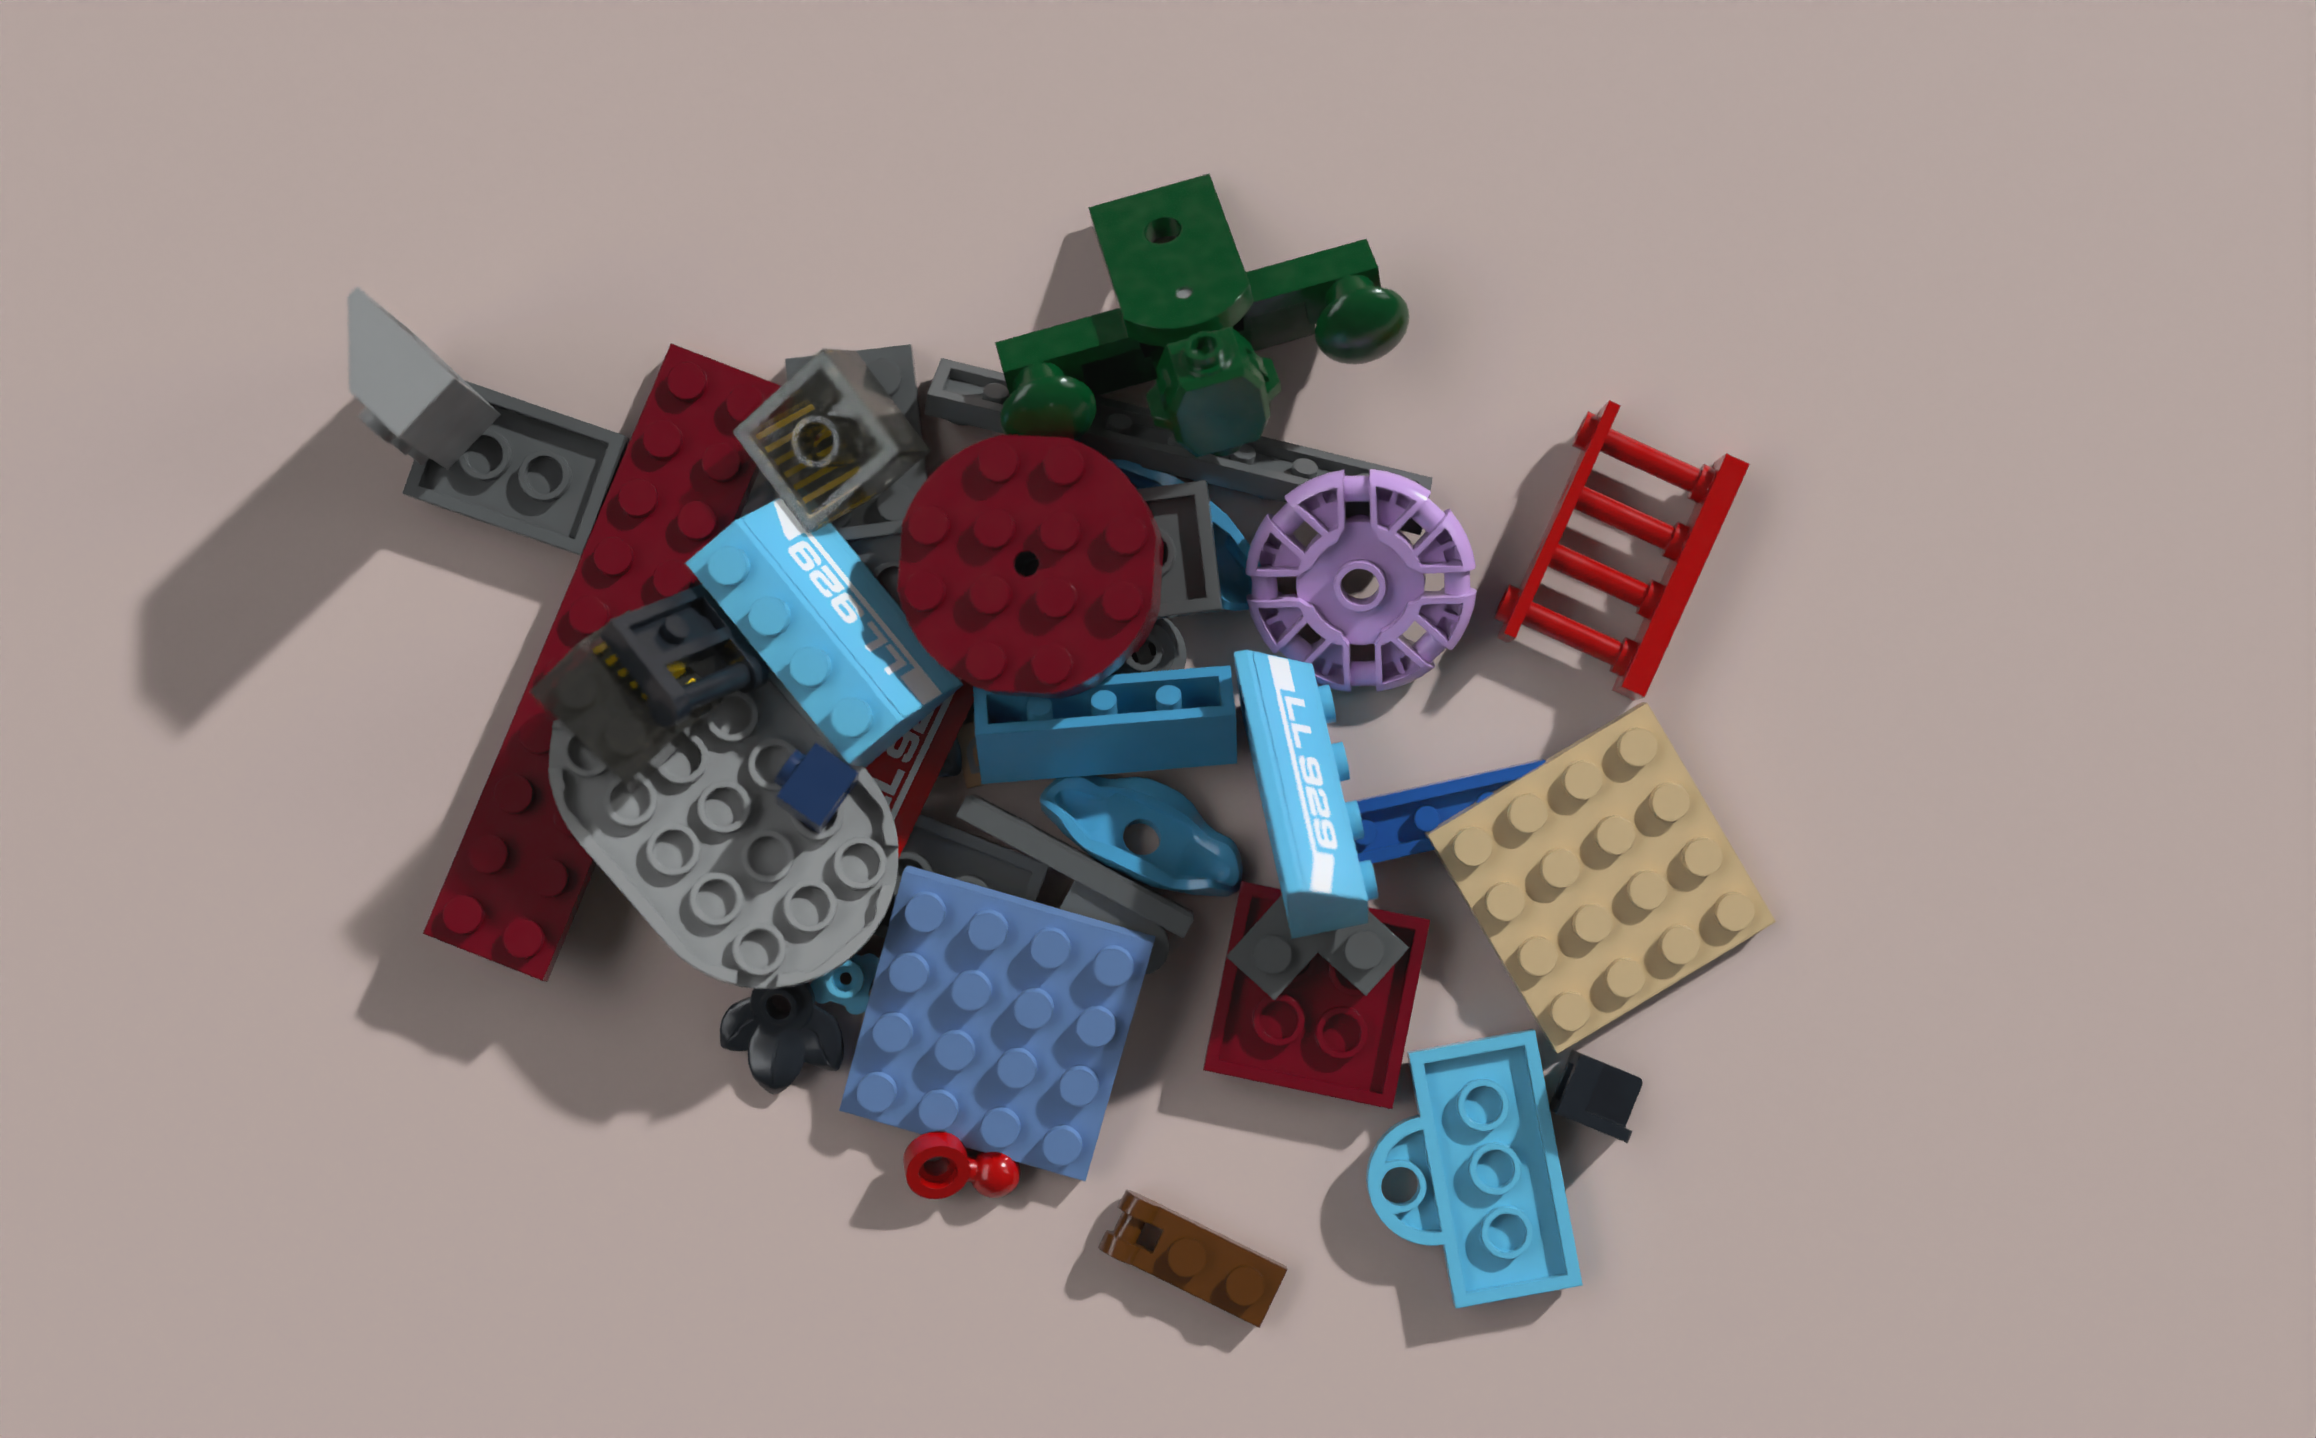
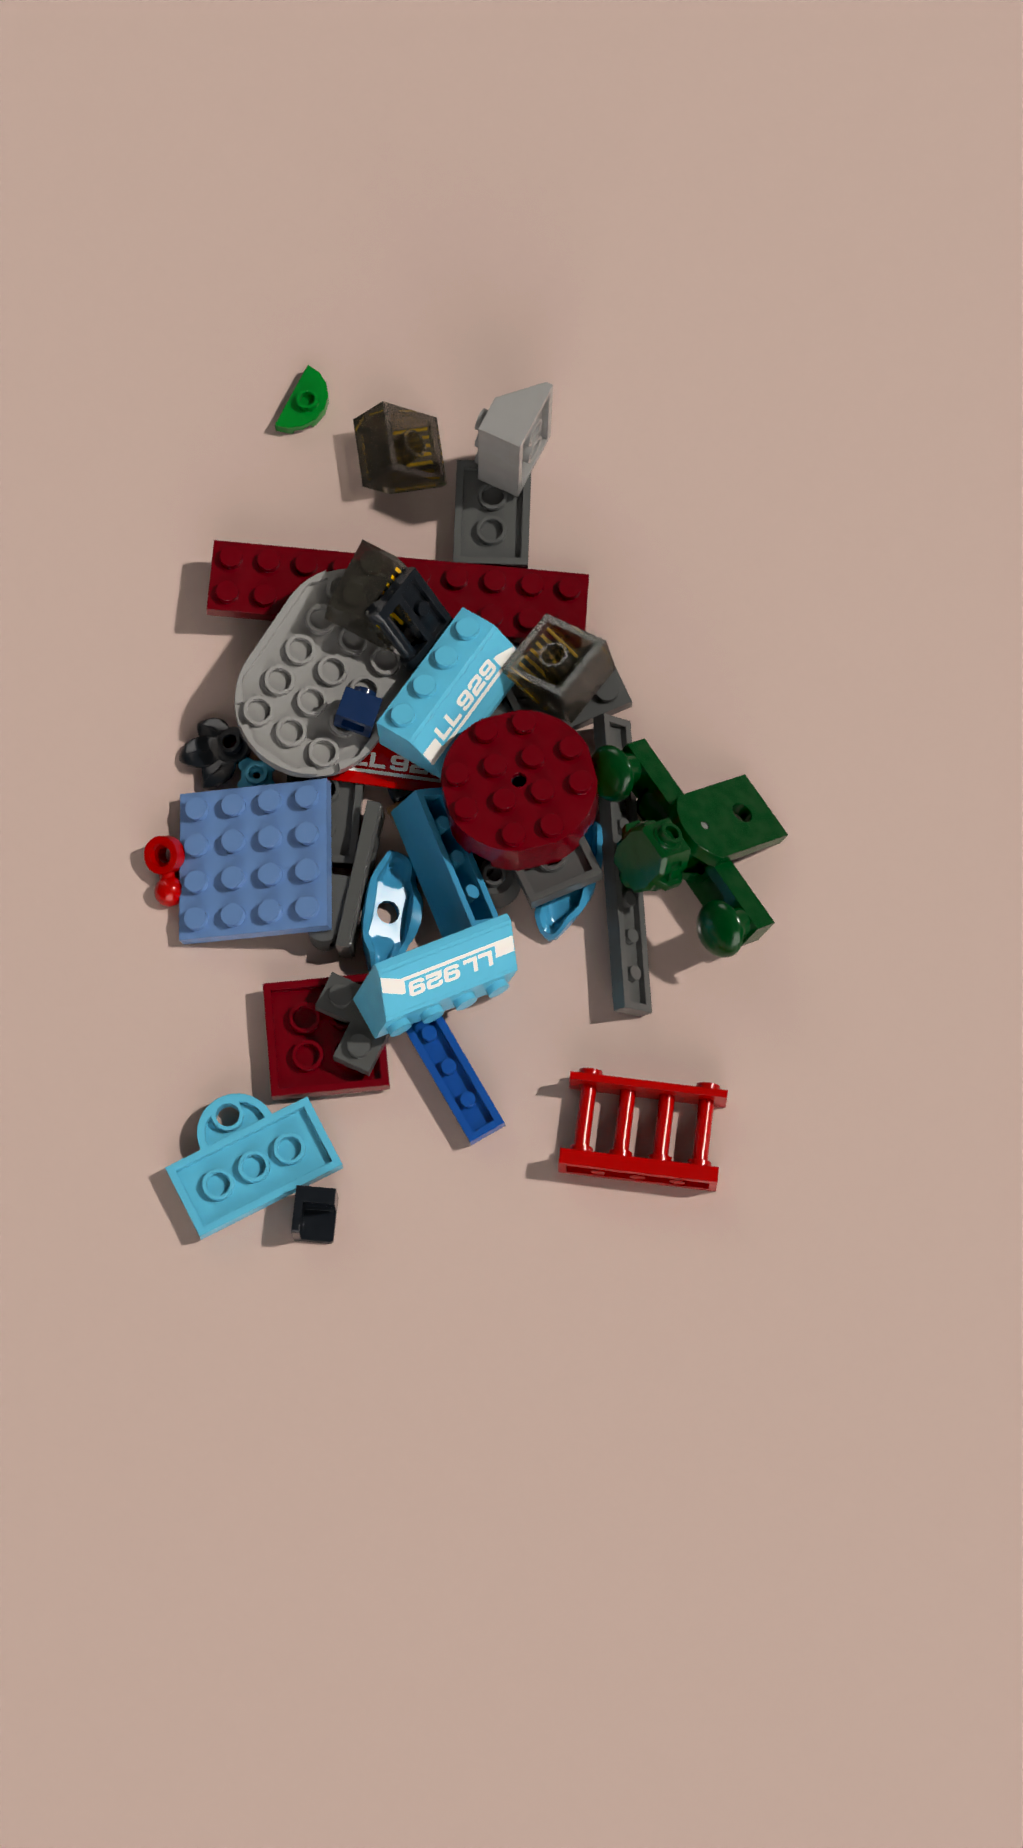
camera: 75 degrees right, 15 degrees down
(215, 709) = (306, 404): none -> green plate
(351, 582) = (399, 449): none -> clear smoke slope
(1195, 1259) = (151, 1017): reddish brown plate -> none
(1369, 545) = (590, 998): lavender plate -> none
(1600, 877) = (445, 1178): tan plate -> none

